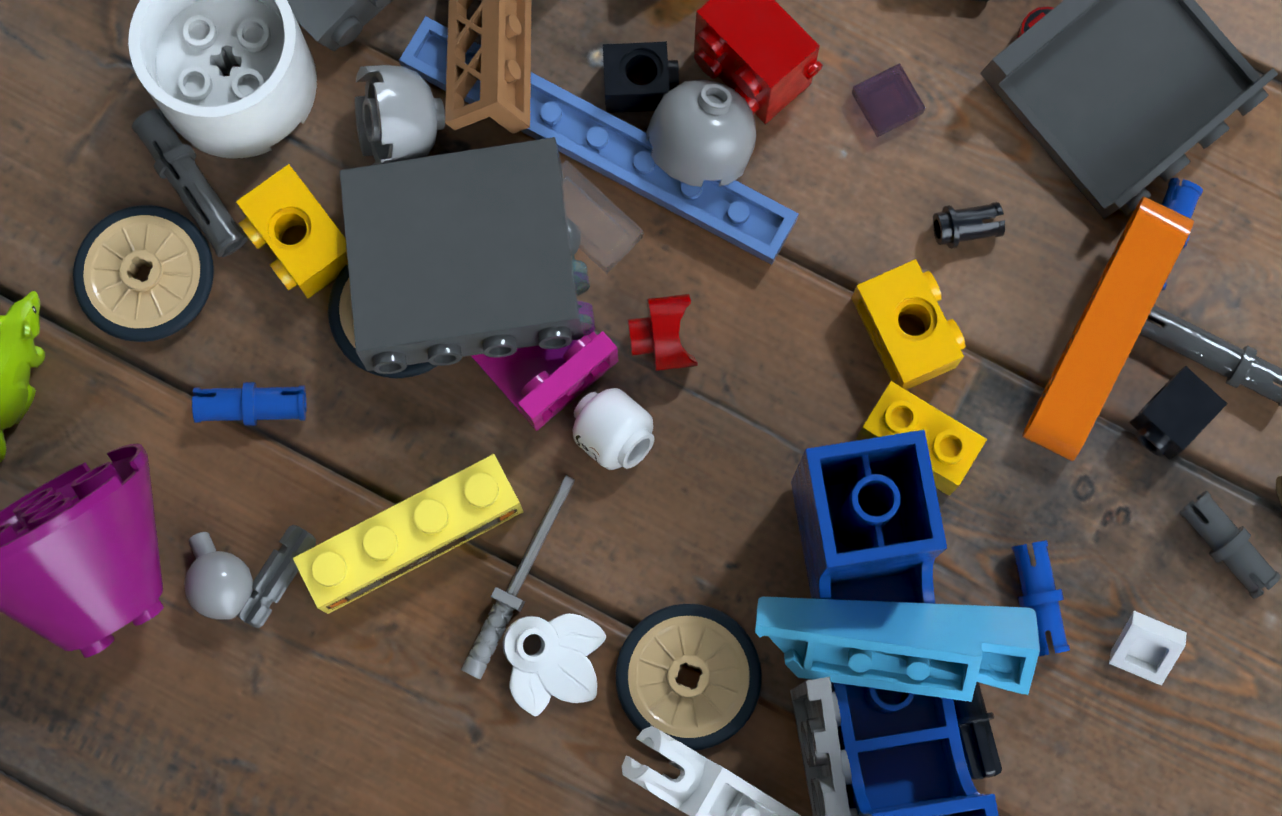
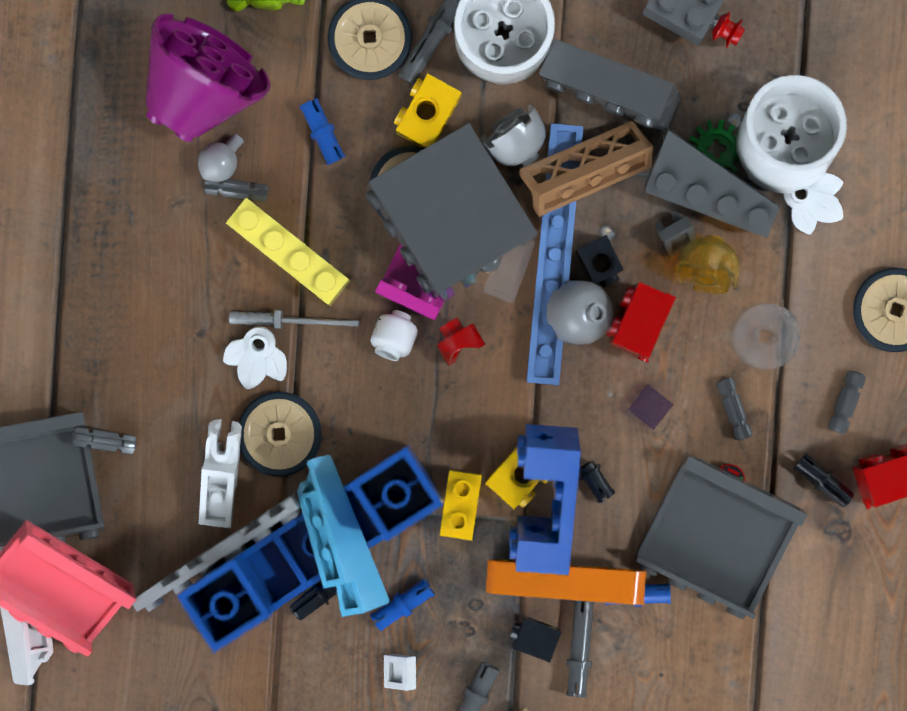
camera: 65 degrees right, 10 degrees up
(1040, 315) = (546, 542): none -> blue plate

